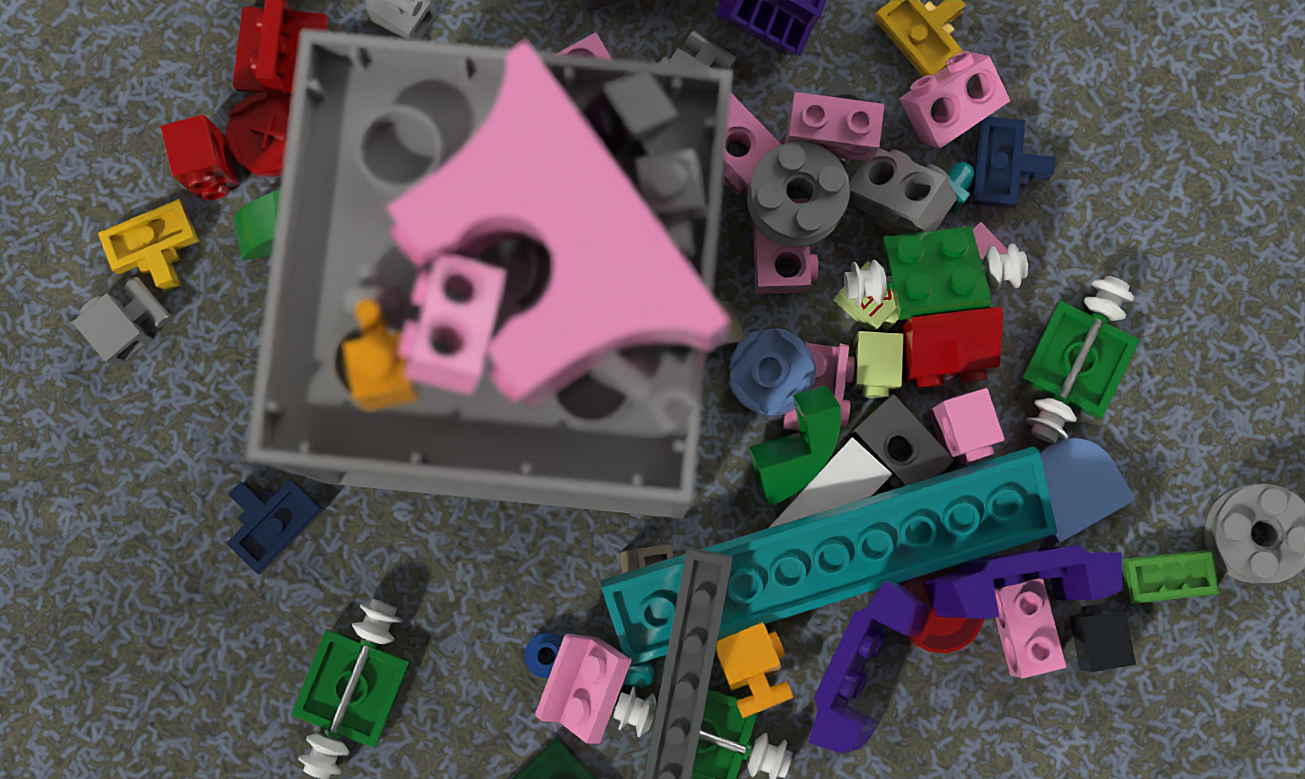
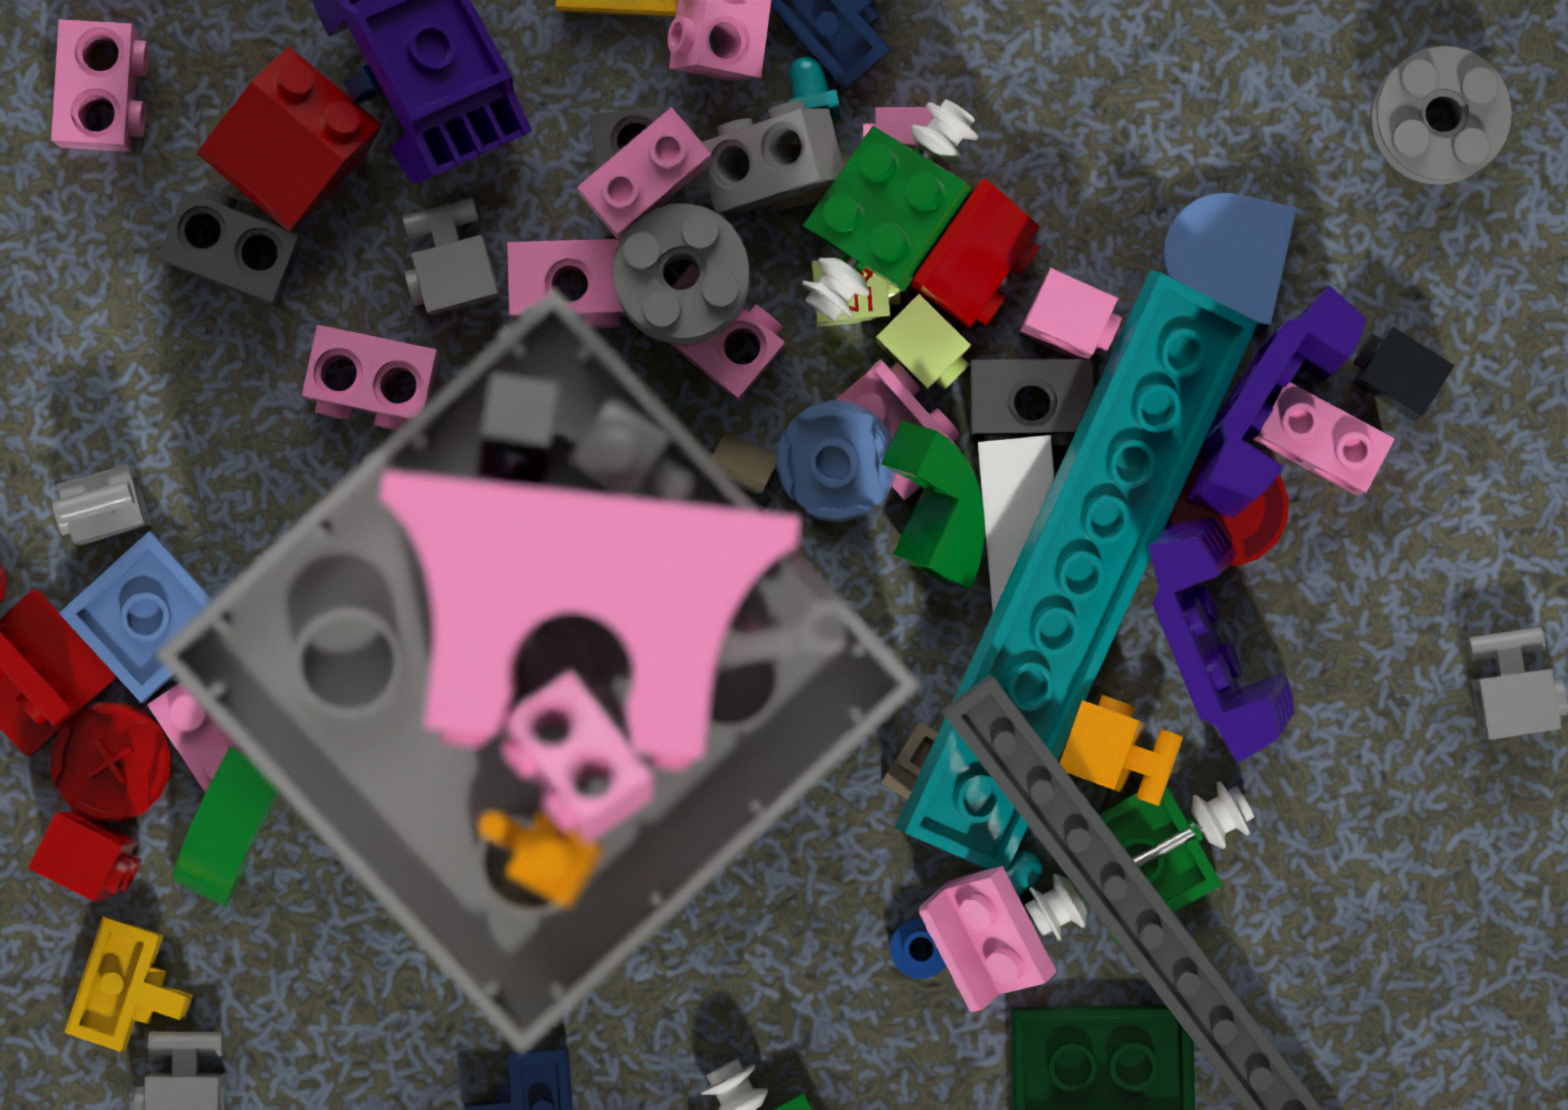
camera: 50 degrees left, 5 degrees up
(371, 288) = (465, 806): light grey tile -> none
(1079, 359) = (1105, 132): green plate -> none
(1169, 576) = (1402, 245): bright green plate -> none

